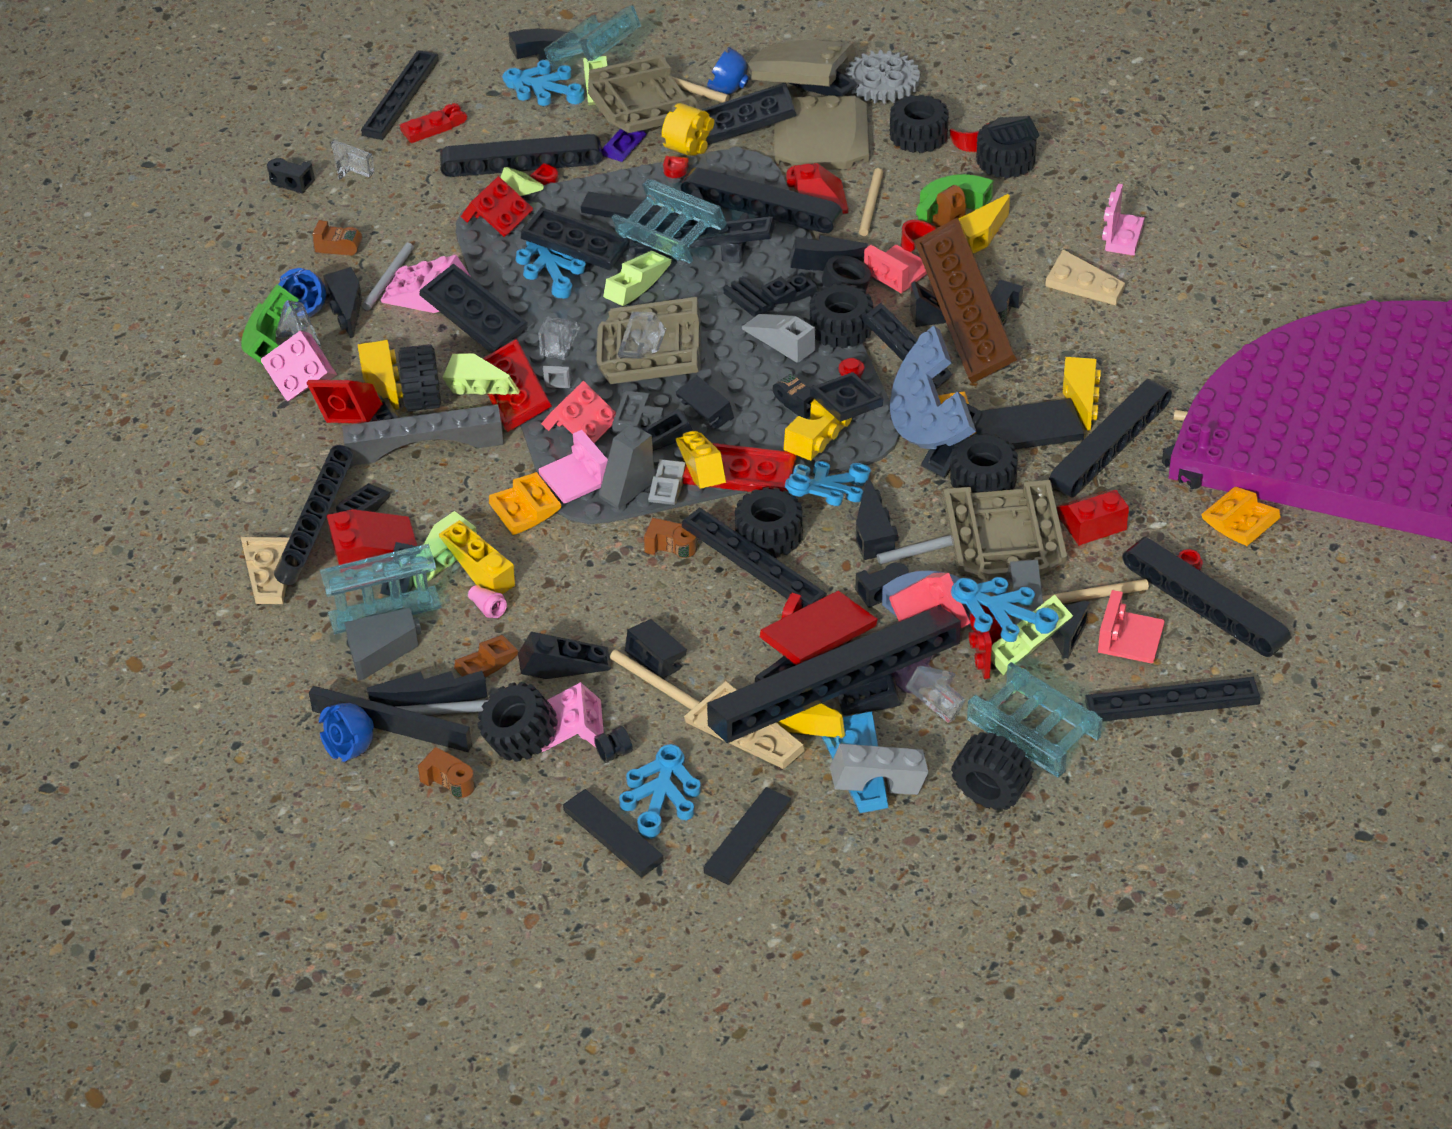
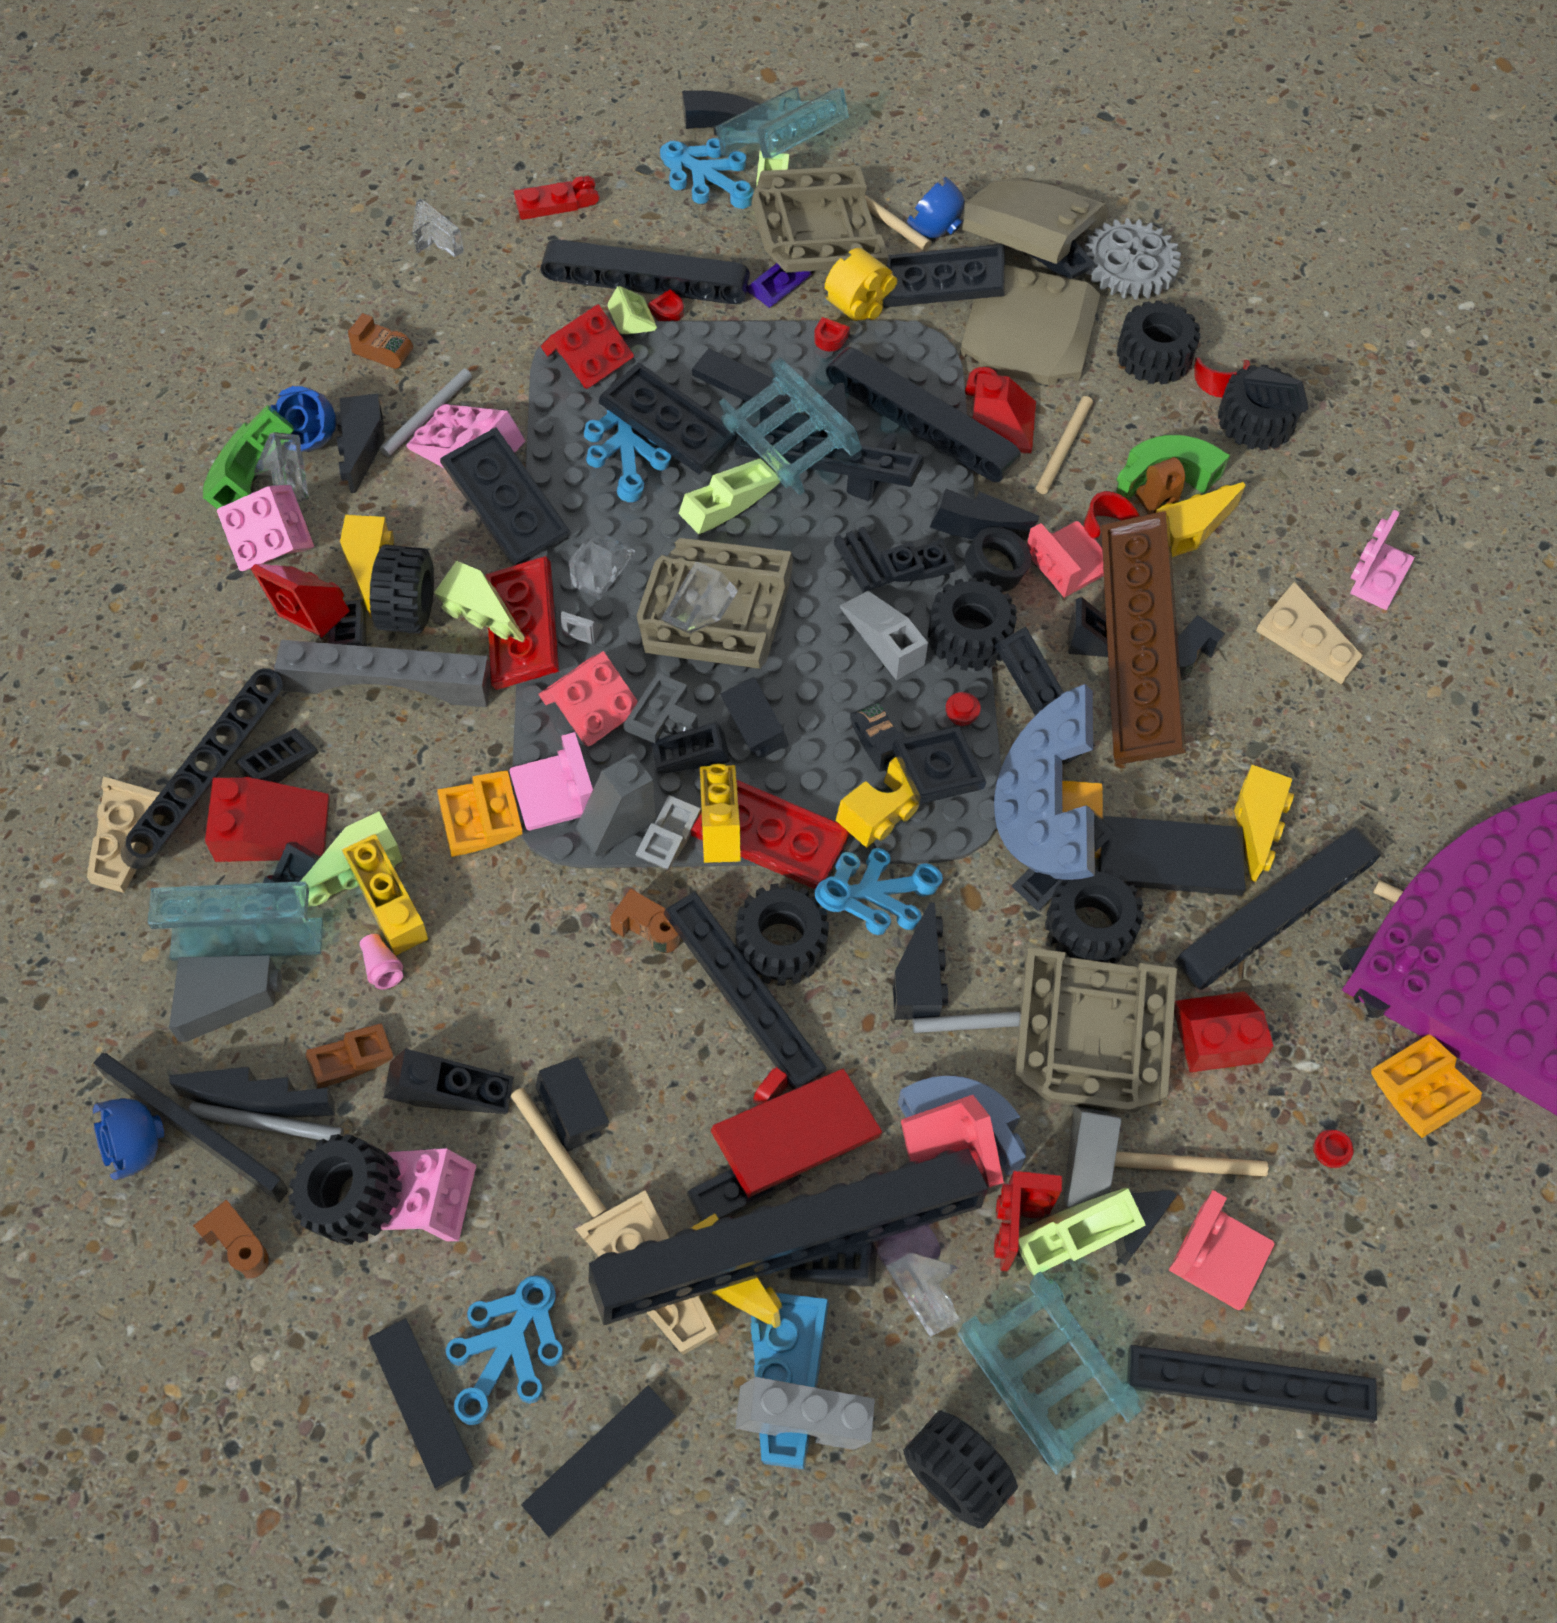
camera: 10 degrees right, 15 degrees up
(290, 175) = (357, 236): black leg -> none
(399, 95) = (529, 147): black tile -> none
(613, 744) = (474, 1249): black wheel -> none
(871, 585) = (895, 1075): black leg -> none
(973, 594) = (1045, 1192): dark azure plant -> none
(1206, 597) = (1345, 1221): black beam -> none

